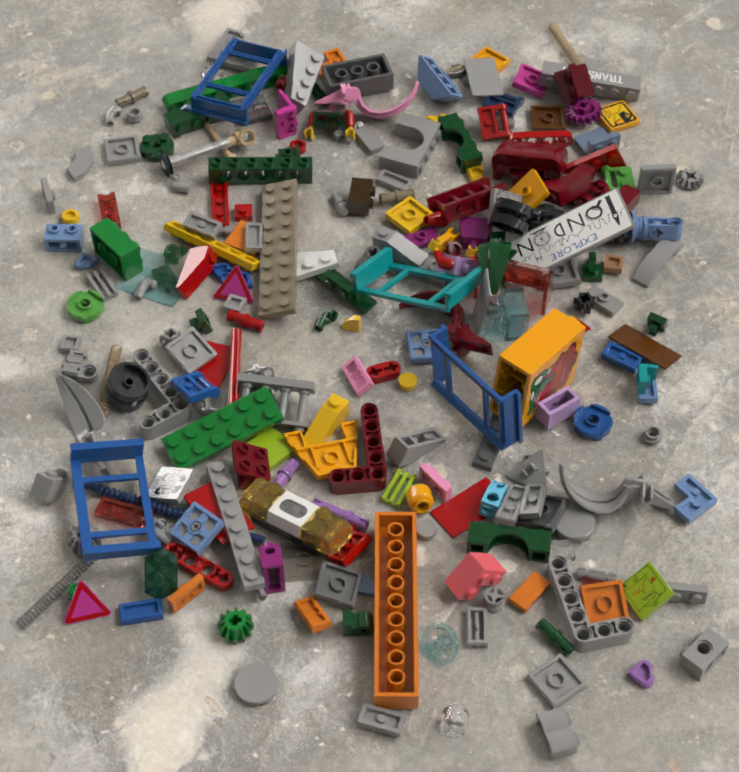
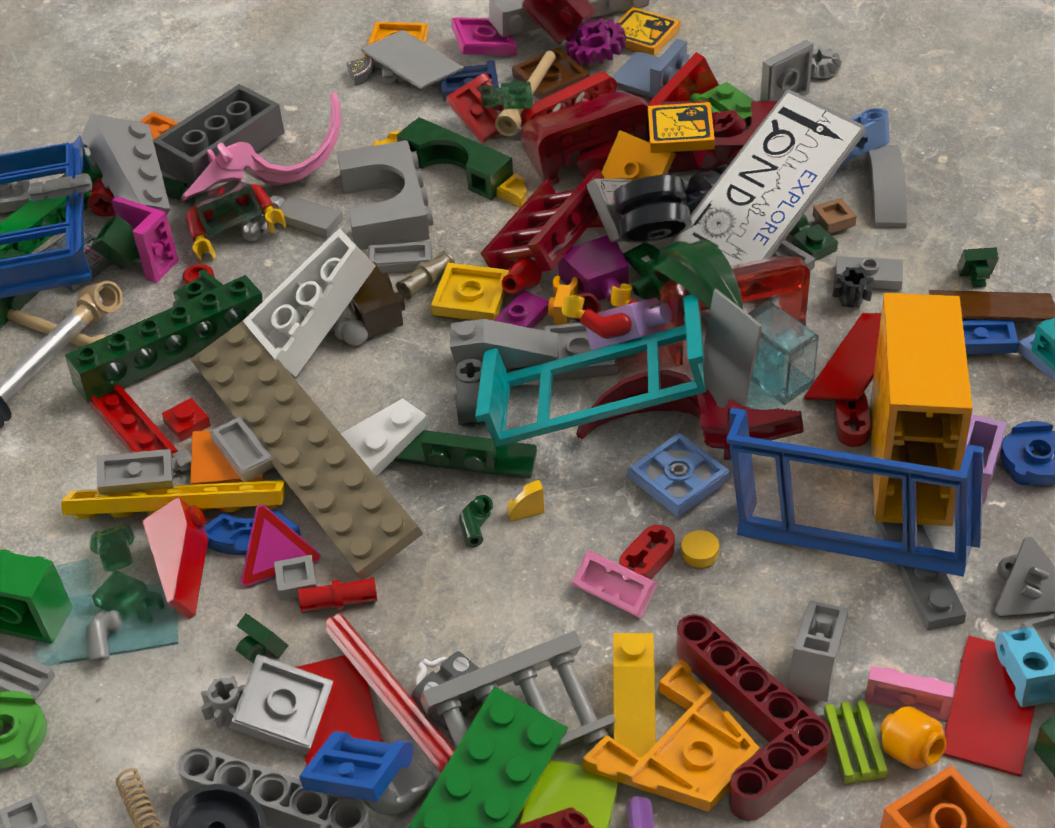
camera: 30 degrees left, 5 degrees down
(177, 186) = (32, 433): light grey arm -> none
(257, 73) = (60, 187): none -> light grey axle
(268, 111) = (117, 243): none -> dark green brick
(327, 184) = (310, 301): none -> white wedge
(436, 81) = (356, 95): medium blue wedge -> none
(499, 135) = (510, 120): none -> tan piece
(508, 123) = (512, 95): none -> clear green plate
(560, 181) = (681, 127): none -> tile

